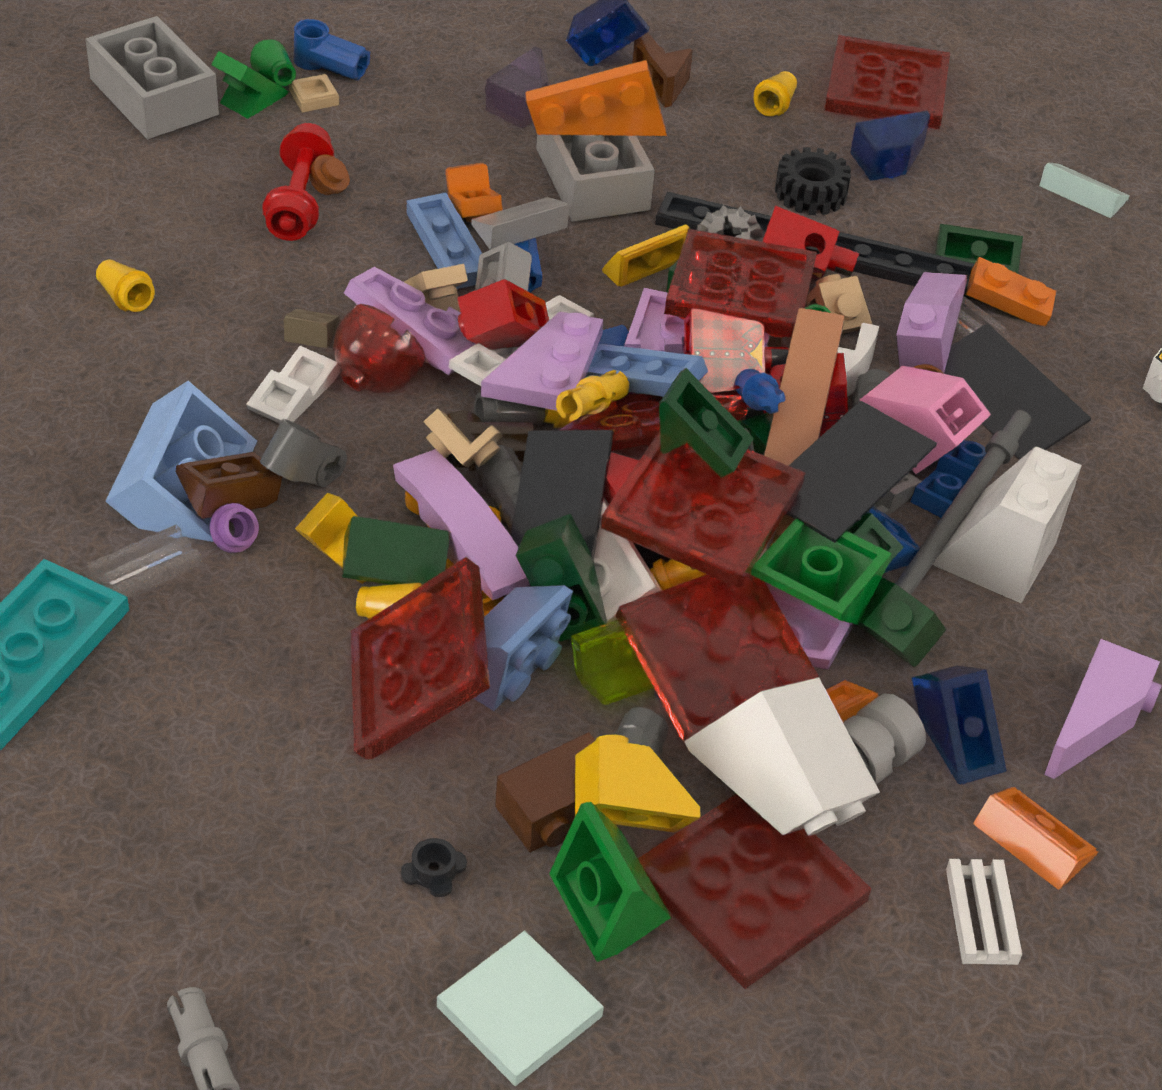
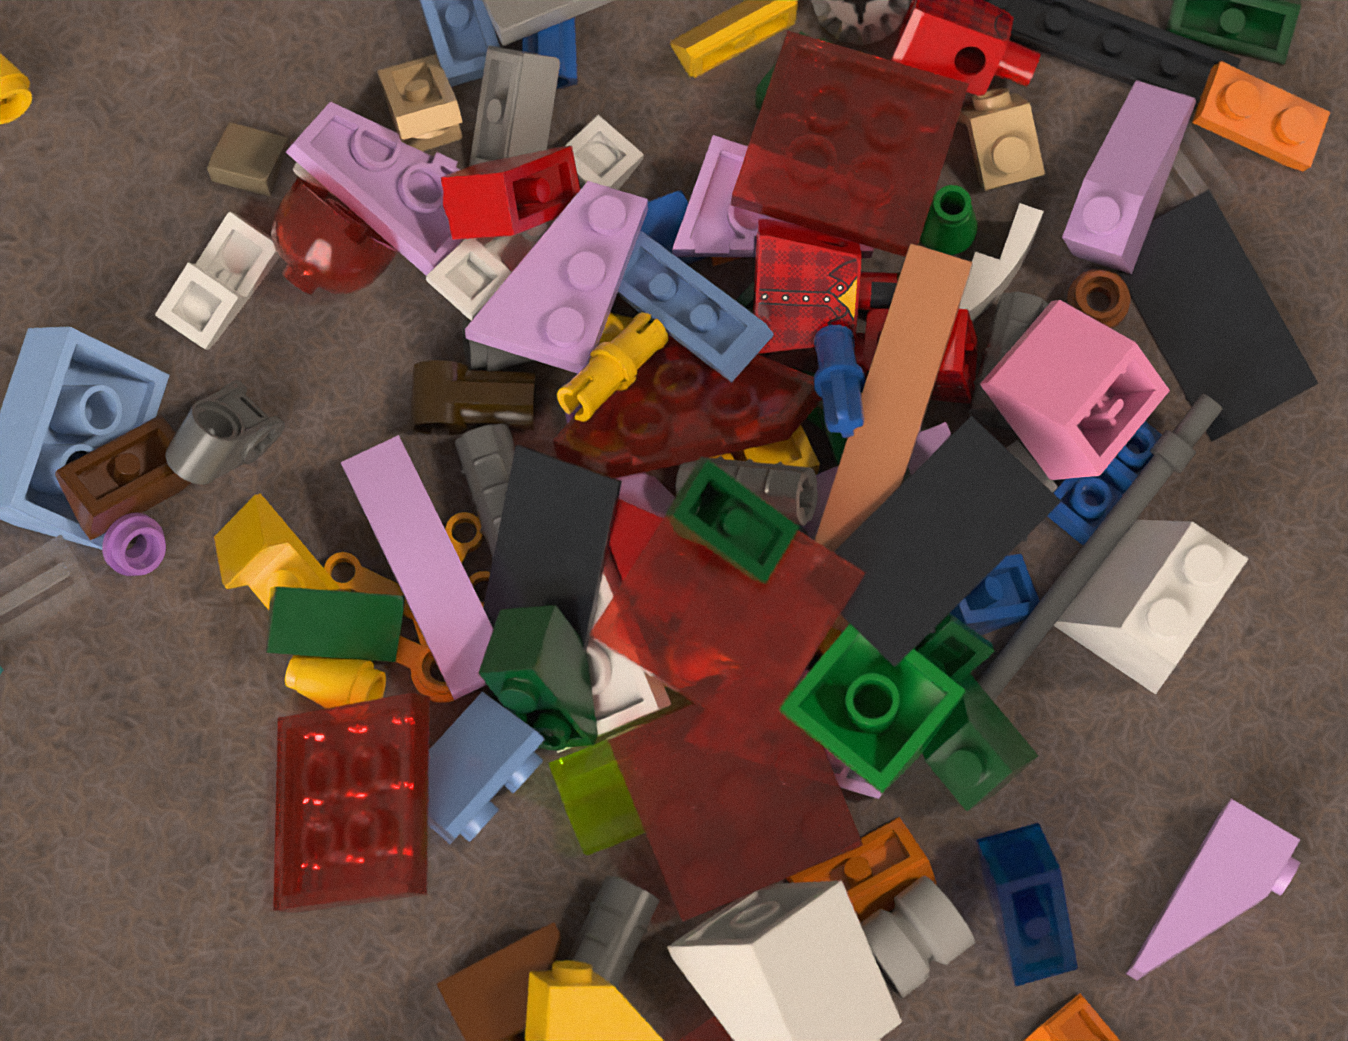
camera: 10 degrees right, 30 degrees up
(449, 439) = (425, 437): tan bracket -> none

